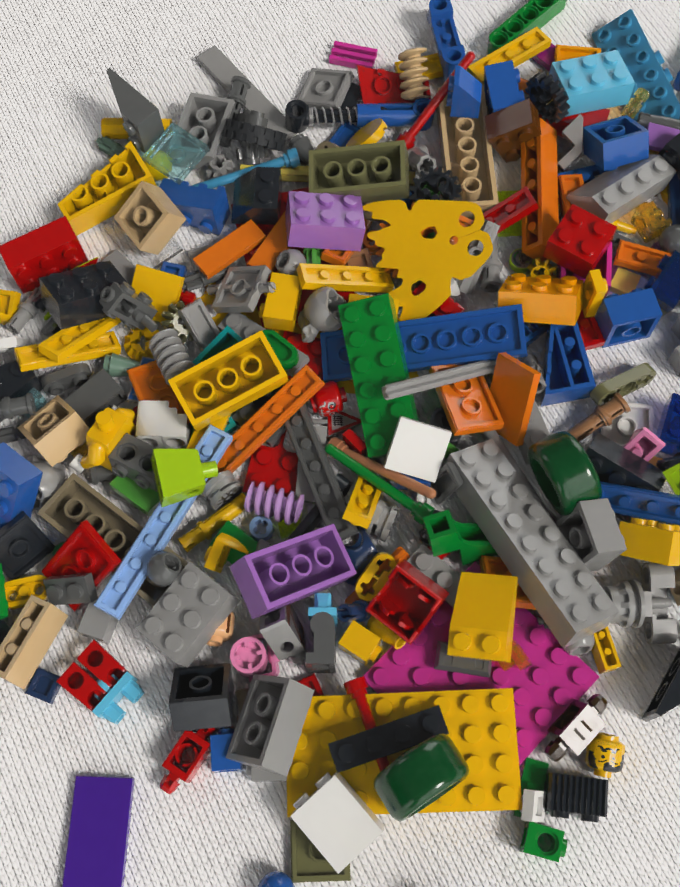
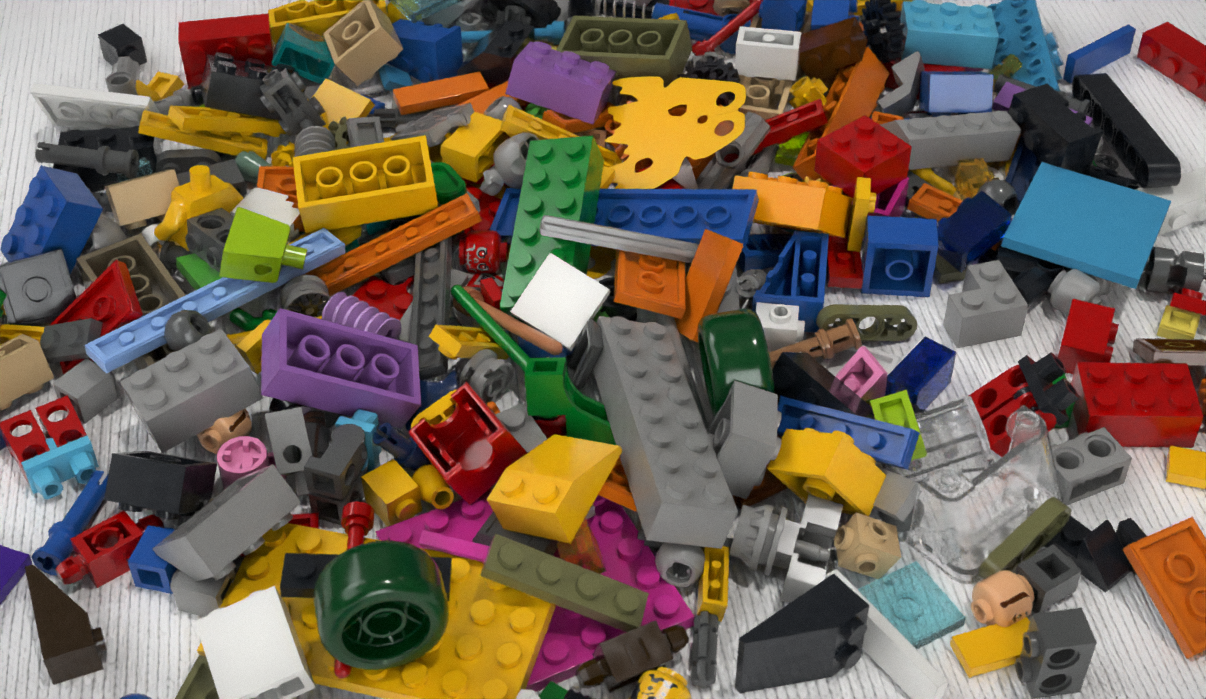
camera: 15 degrees right, 25 degrees down
(104, 240) = (303, 51): none -> teal torso
(150, 754) = (58, 545): none -> blue pin
(185, 240) = (393, 78): none -> dark azure tile
(192, 836) = (64, 630): none -> dark brown slope
(197, 513) = (248, 322): none -> green arm
(436, 684) = (453, 546): none -> dark pink tile
(473, 151) = (767, 53): none -> white brick
(509, 176) = (807, 91): none -> yellow gear
(519, 698) = (564, 584): none -> olive plate
(564, 410) = (780, 324): none -> white brick
(615, 699) = (704, 650): none -> dark grey axle

